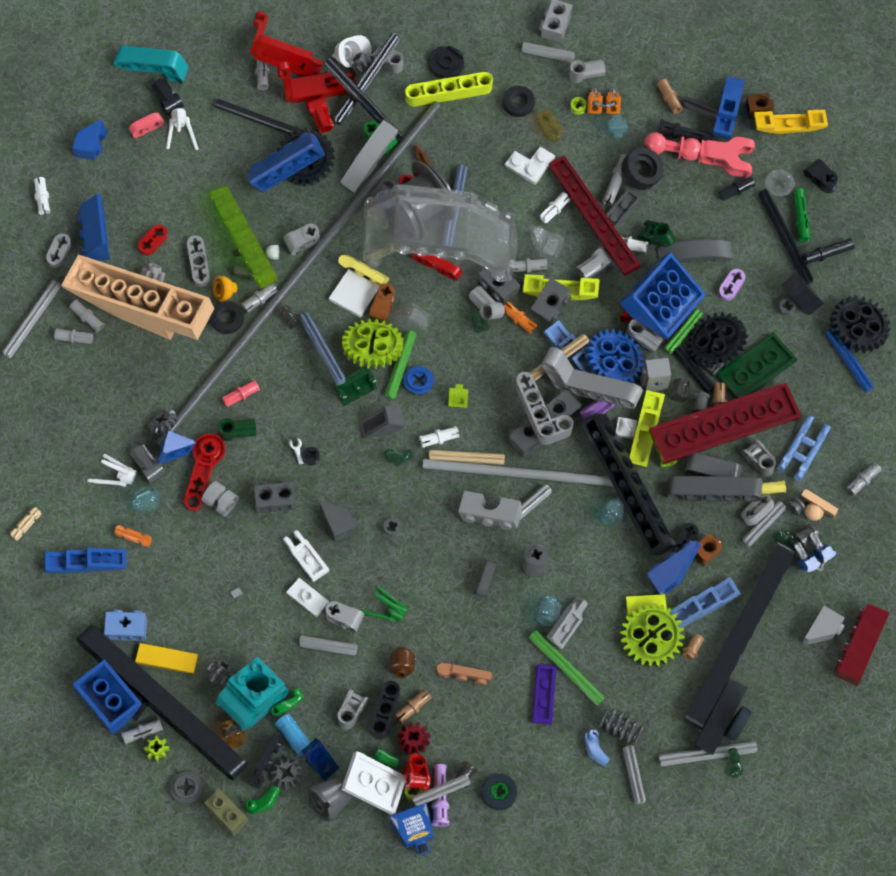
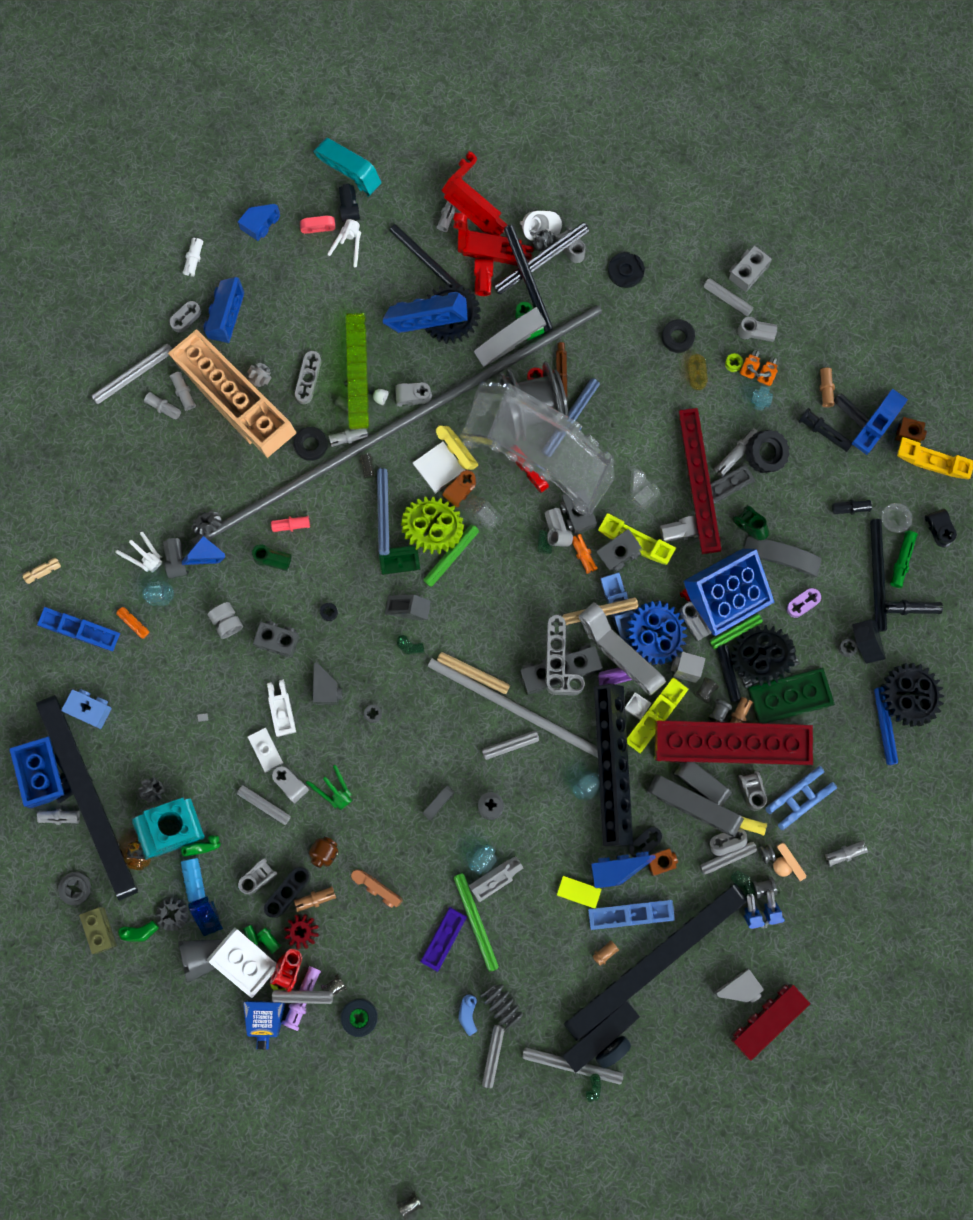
camera: 25 degrees right, 10 degrees up
(155, 243) = (273, 336): red beam -> none
(161, 752) = (66, 835): lime gear -> none
(166, 658) = (111, 755): yellow tile -> none
(203, 466) = (225, 581): red beam -> none
(223, 288) = (319, 414): light orange brick -> none
(265, 763) = (155, 896): black hinge -> none
(297, 450) = (318, 601): white hand -> none
(419, 372) = (465, 570): blue gear -> none
(439, 436) = (456, 642): white pin -> none
(455, 83) = (623, 294): neon yellow beam -> none
(458, 396) = (491, 609): lime tile -> none
(505, 515) = (483, 748): light grey arch -> none
(530, 265) = (616, 505): light grey pin -> none
(532, 168) = (660, 408): white plate -> none
(554, 207) = (665, 457): white axle -> none
(636, 245) = (726, 525): white axle -> none
(640, 622) = (565, 908): lime gear -> none
(708, 152) = (837, 458): coral piece -> none

